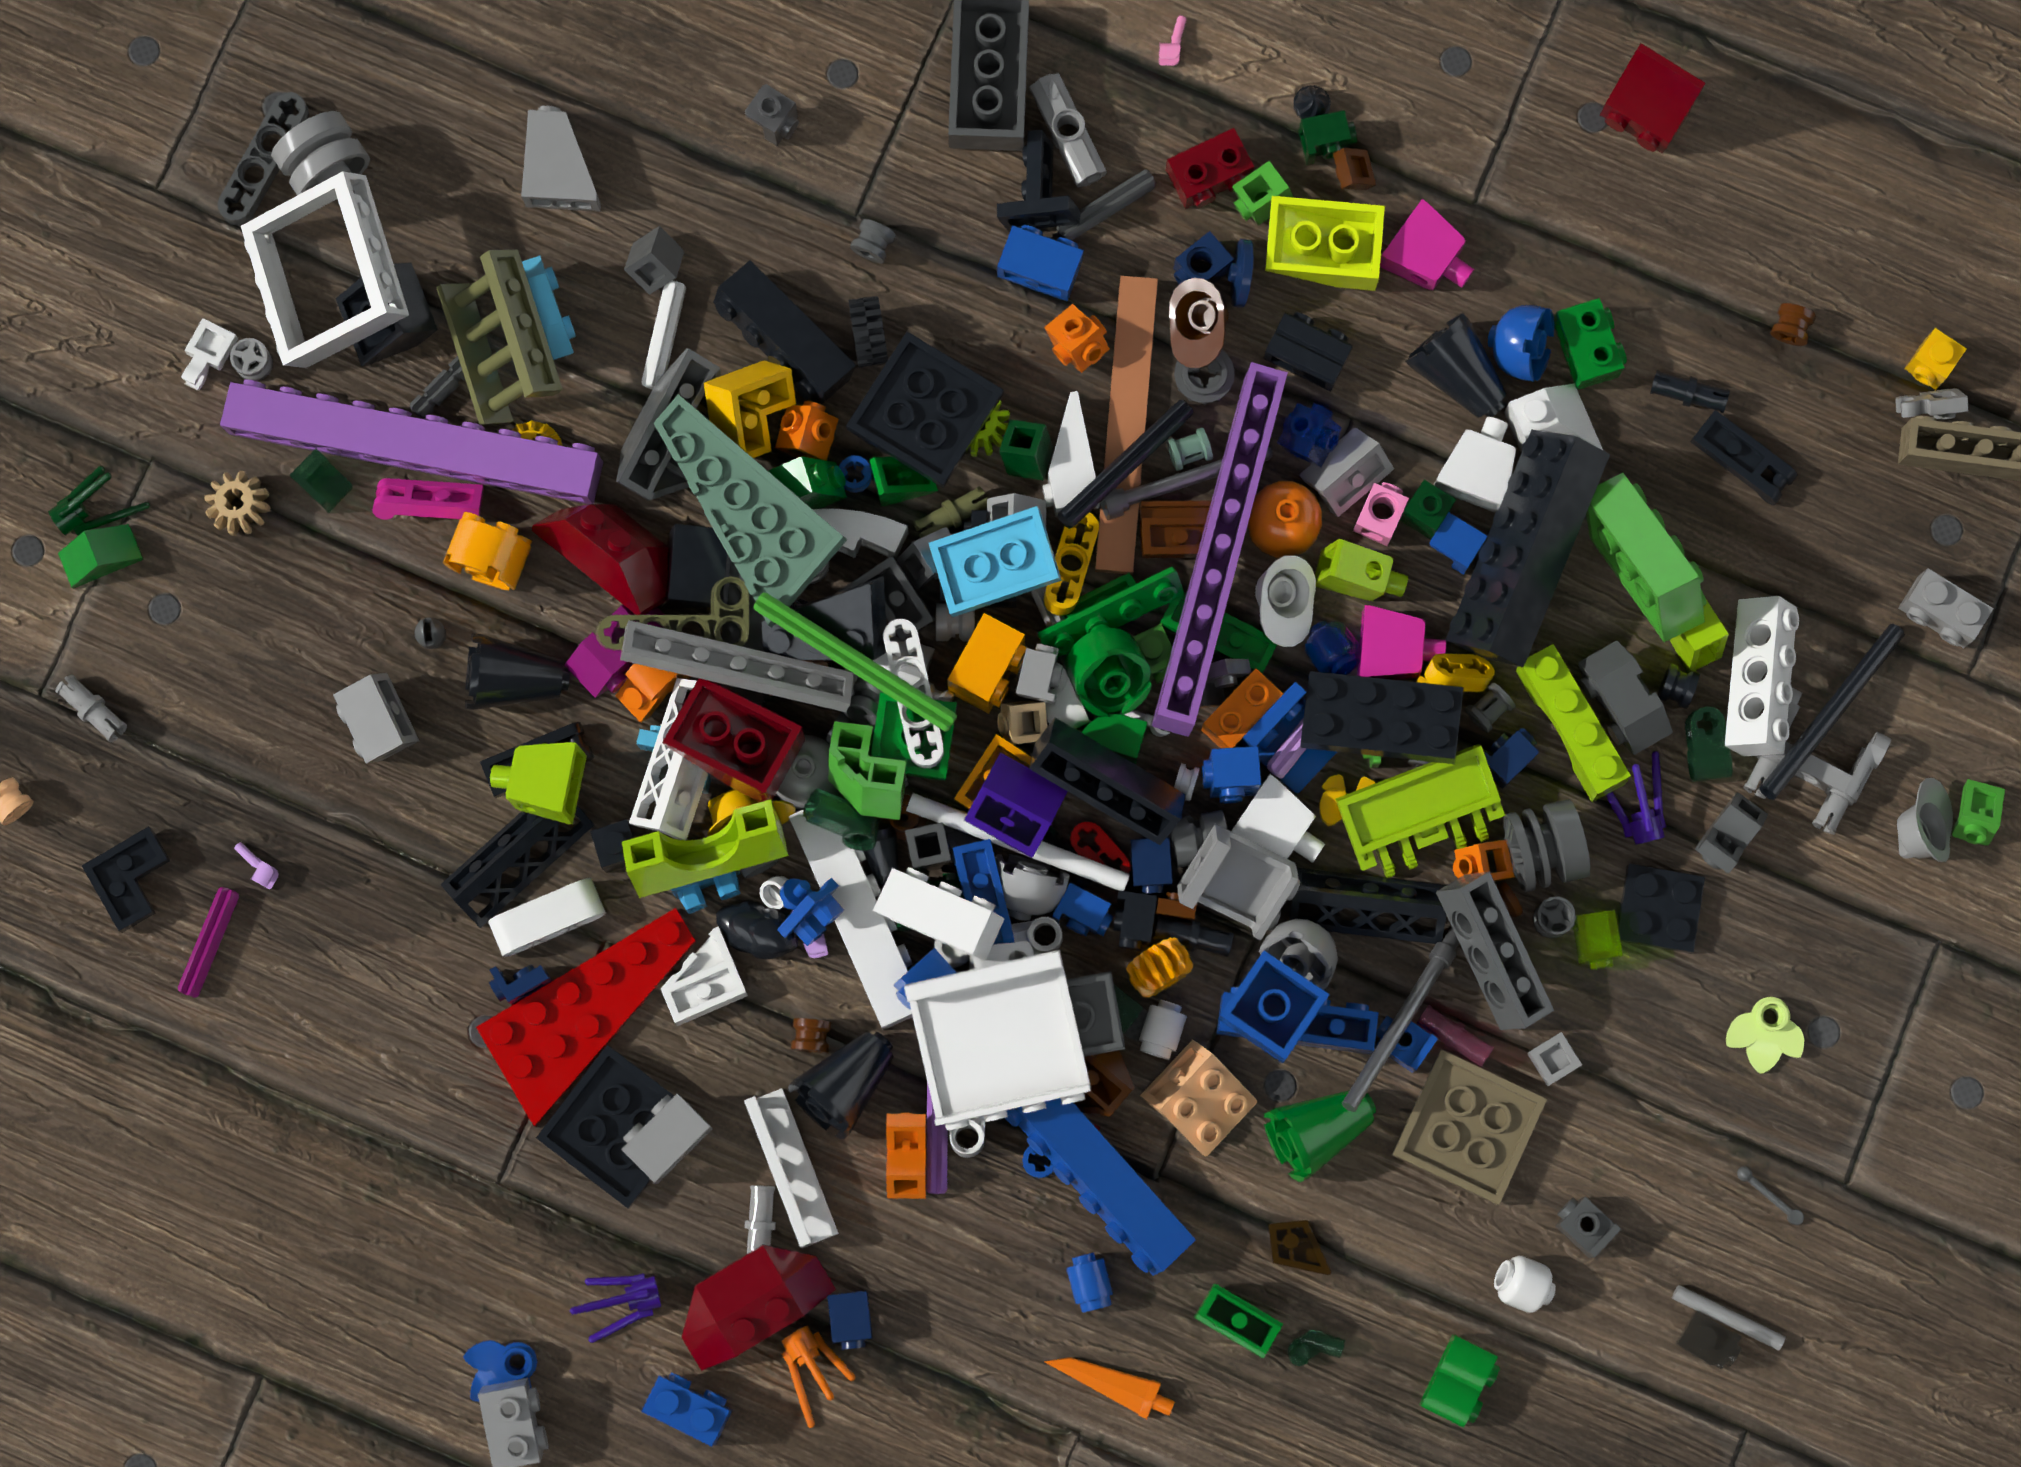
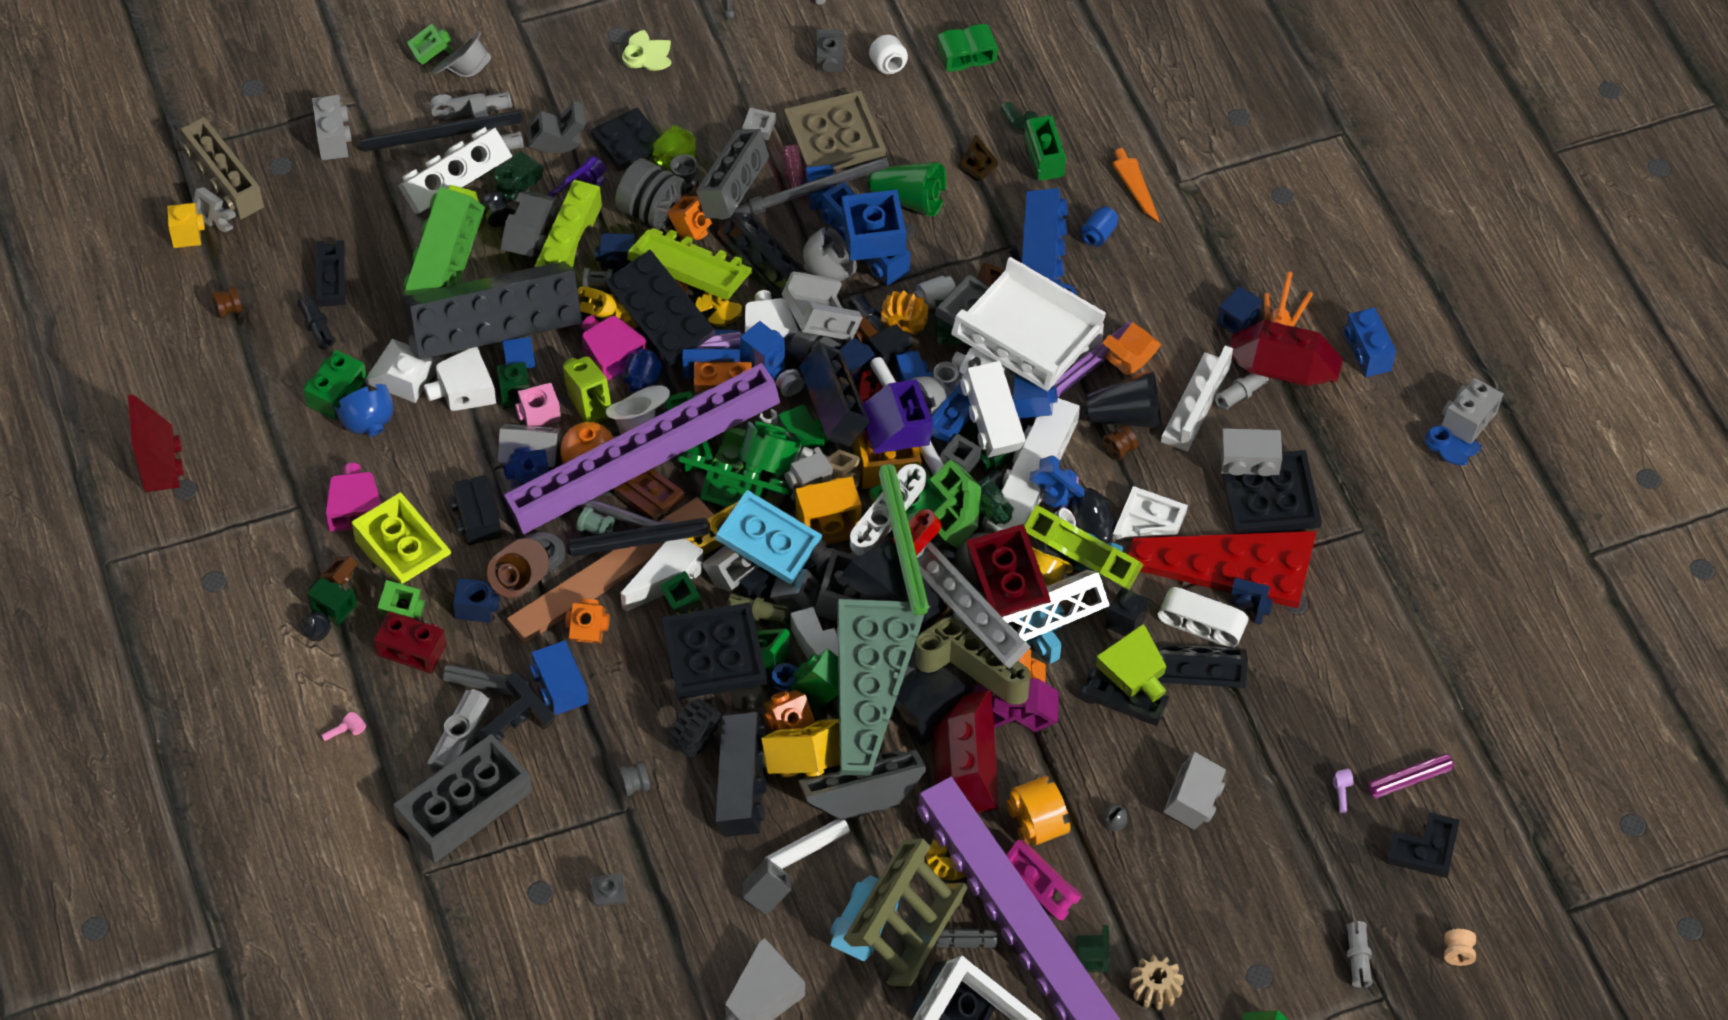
camera: 135 degrees left, 25 degrees down
(511, 674) = (1097, 746): black cone -> none
(641, 1296) = (1341, 411): dark purple plant -> none
(852, 697) = (922, 533): none -> red beam
(1199, 1097) = (951, 253): light nougat bracket -> none
(1241, 273) = (464, 564): dark blue piece -> none
(1460, 367) = (411, 433): black cone -> none

